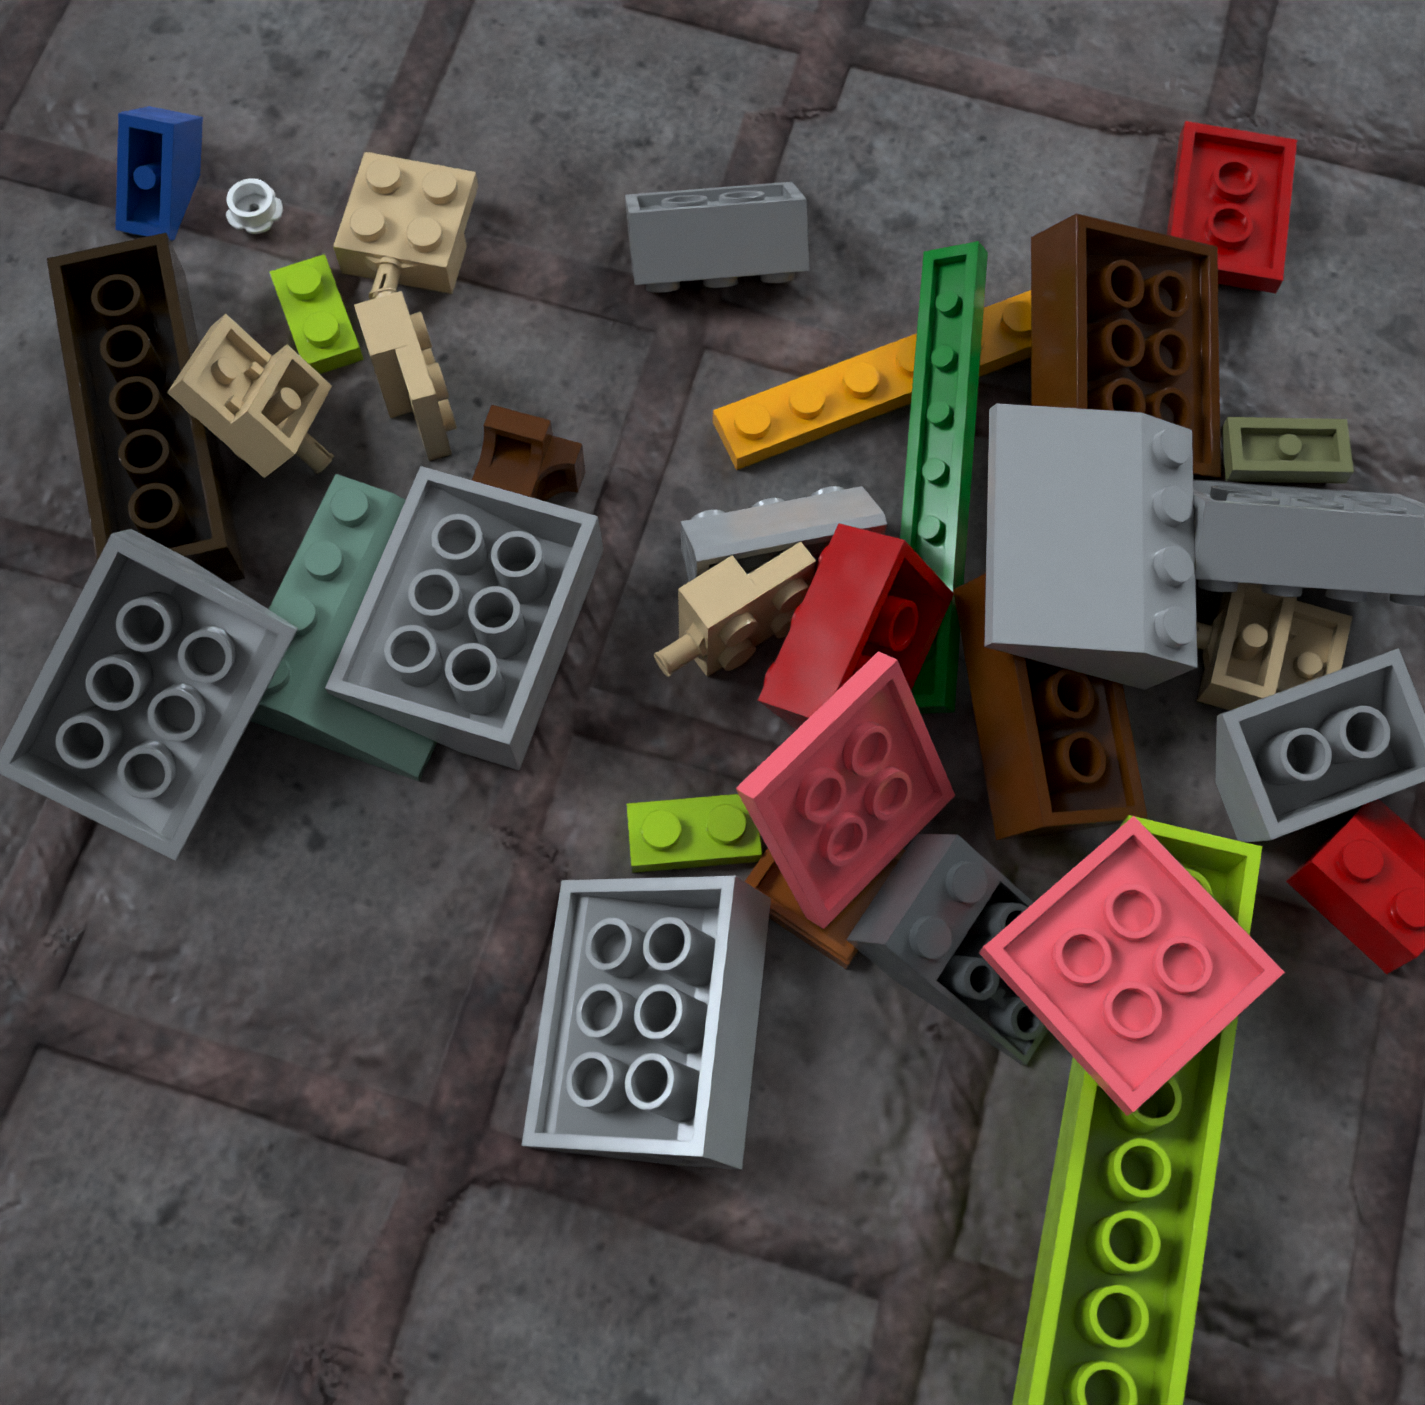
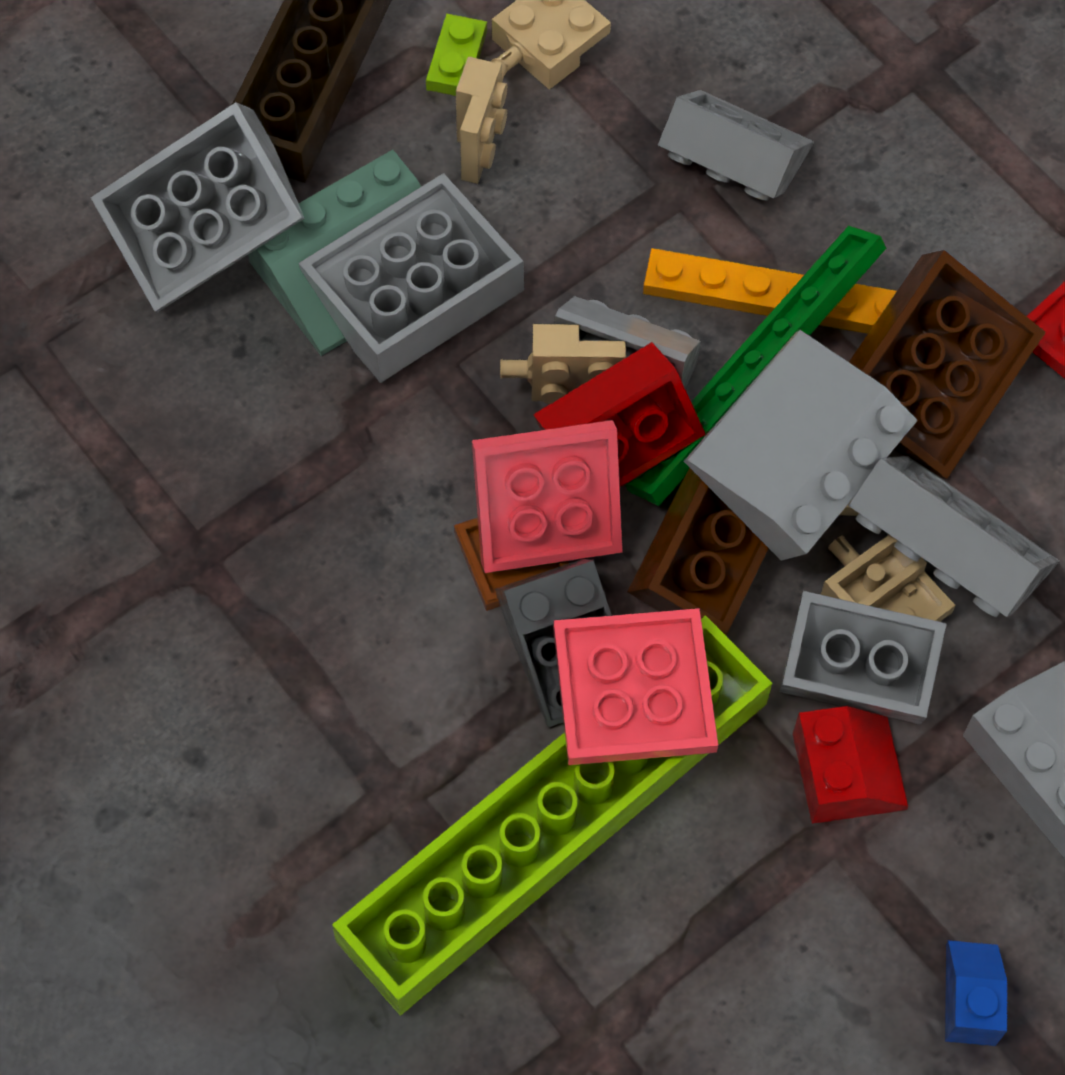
camera: 35 degrees right, 5 degrees down
(254, 399) = (378, 79): tan plate -> none
(526, 457) = (513, 208): reddish brown brick -> none
(650, 1020) = (352, 560): light grey slope -> none
(691, 833) = (443, 476): lime plate -> none
(1286, 450) = (1000, 486): olive plate -> none

